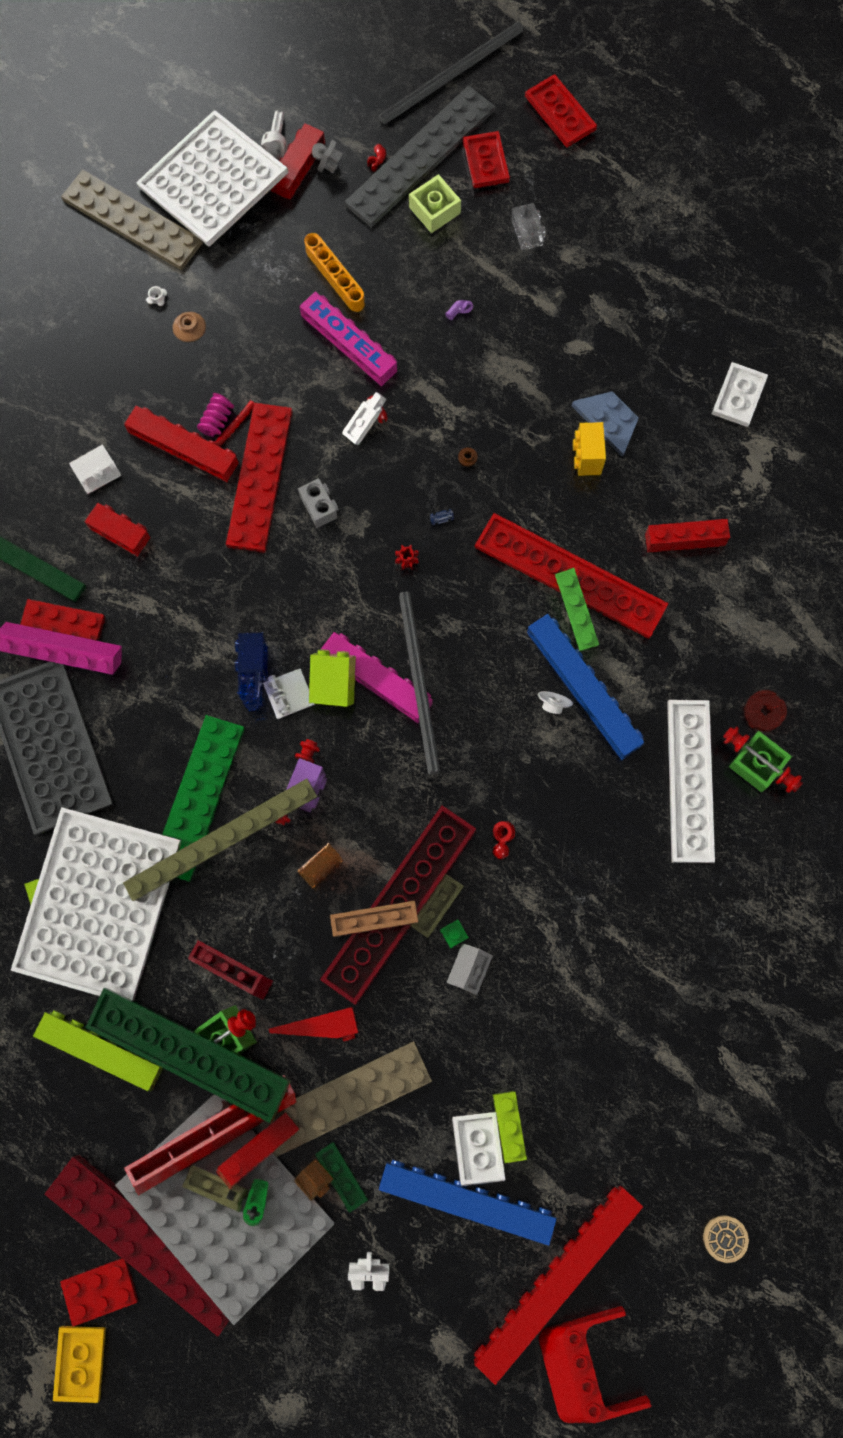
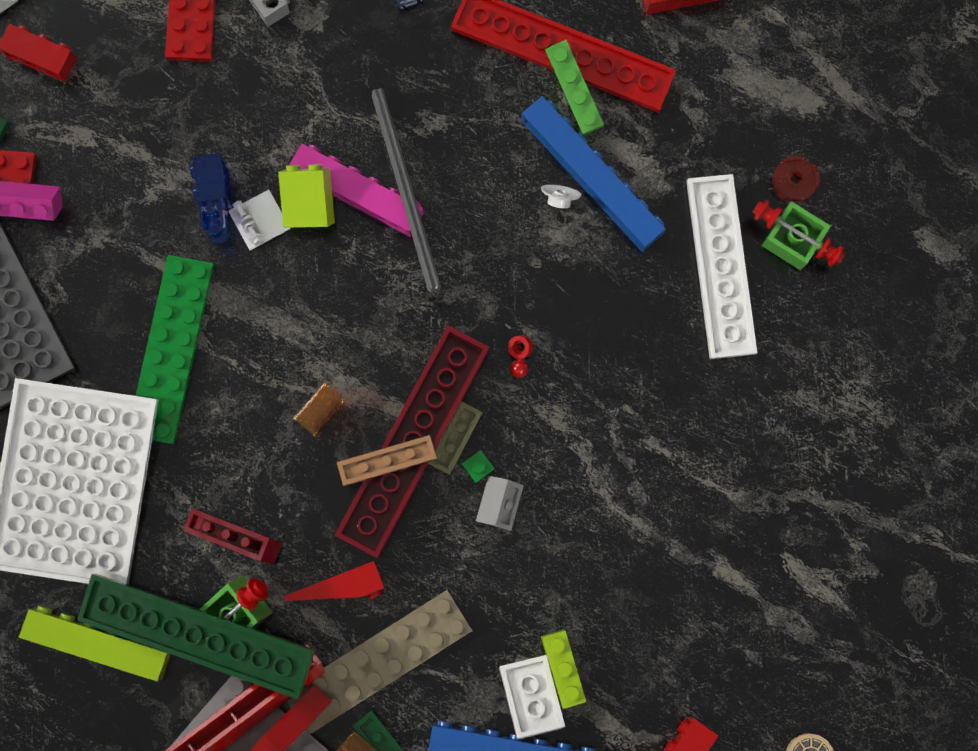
camera: 15 degrees left, 5 degrees up
(220, 840) = (202, 393): olive plate -> none
(307, 769) = (288, 321): medium lavender brick -> none
(403, 554) = (379, 52): red gear -> none

